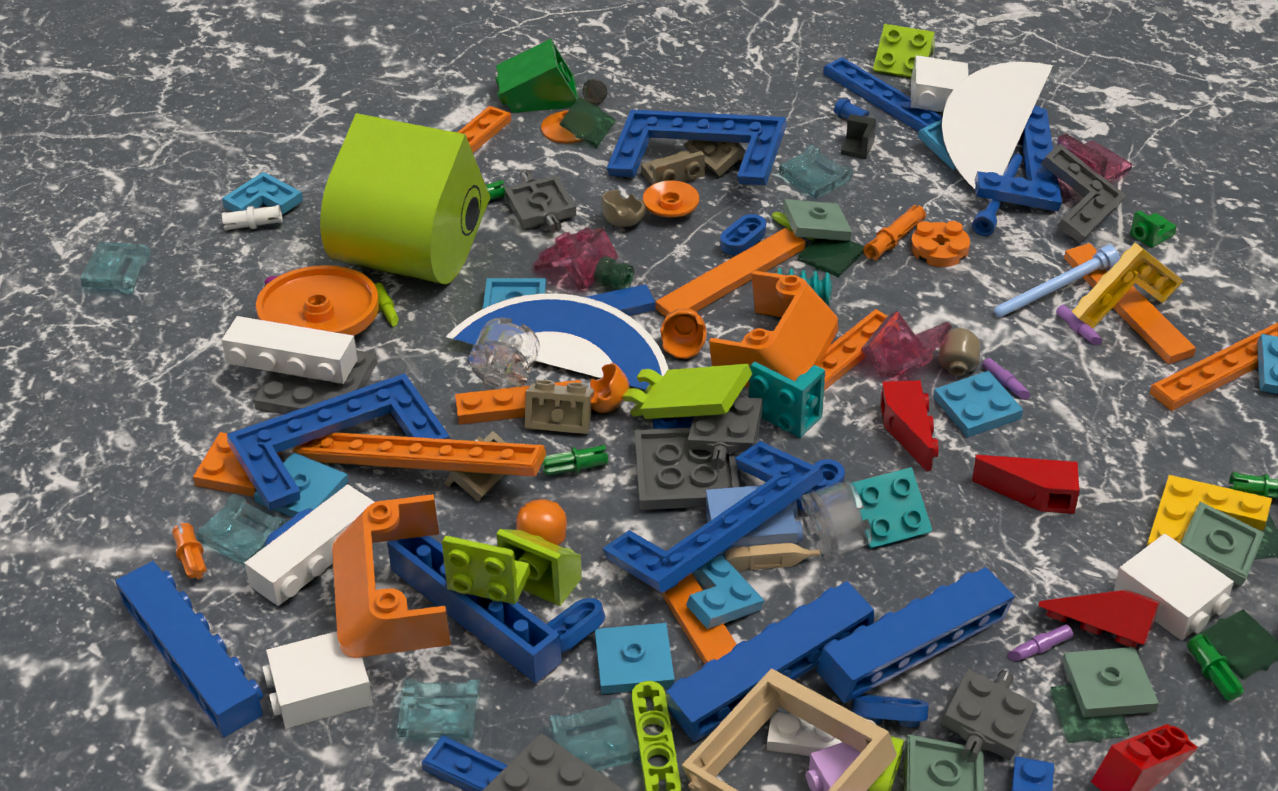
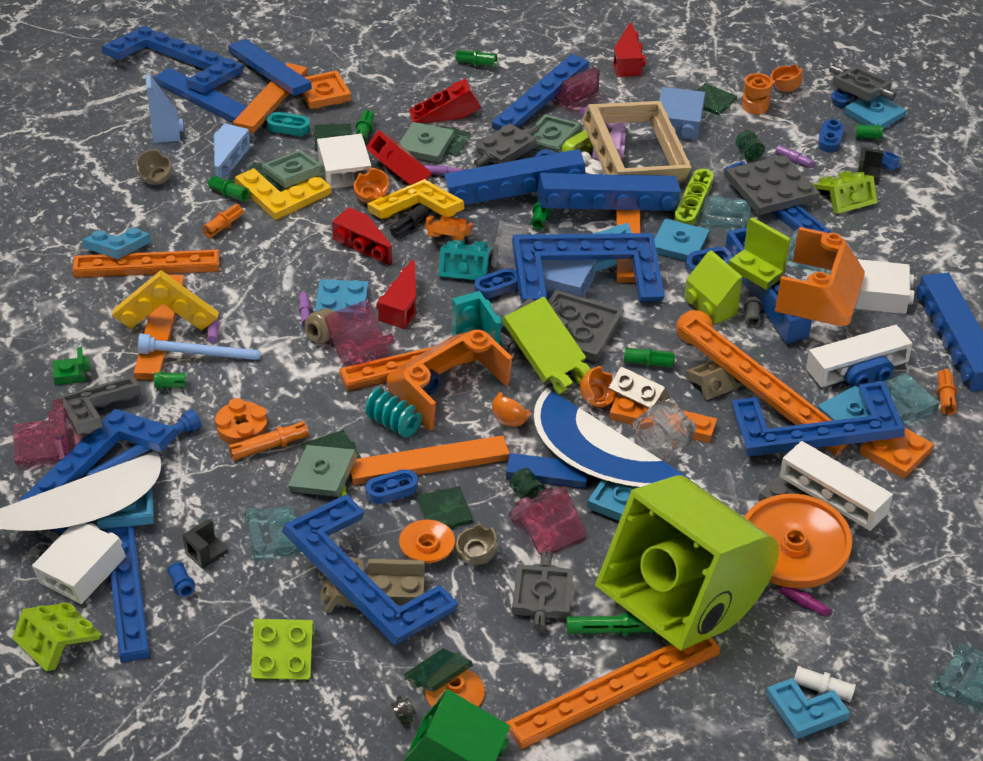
camera: 155 degrees left, 0 degrees up
(682, 244) = (446, 507): none -> clear green piece
(729, 97) = (282, 649): none -> lime bracket
(931, 546) = (450, 226): none -> orange plate
(1003, 535) = (409, 220): none -> black axle
(1023, 576) = (420, 192): none -> yellow plate
(1053, 247) = (169, 380): none -> green pin
(1093, 554) = (371, 185): none -> orange hair
(1215, 442) = (222, 220): none -> orange axle

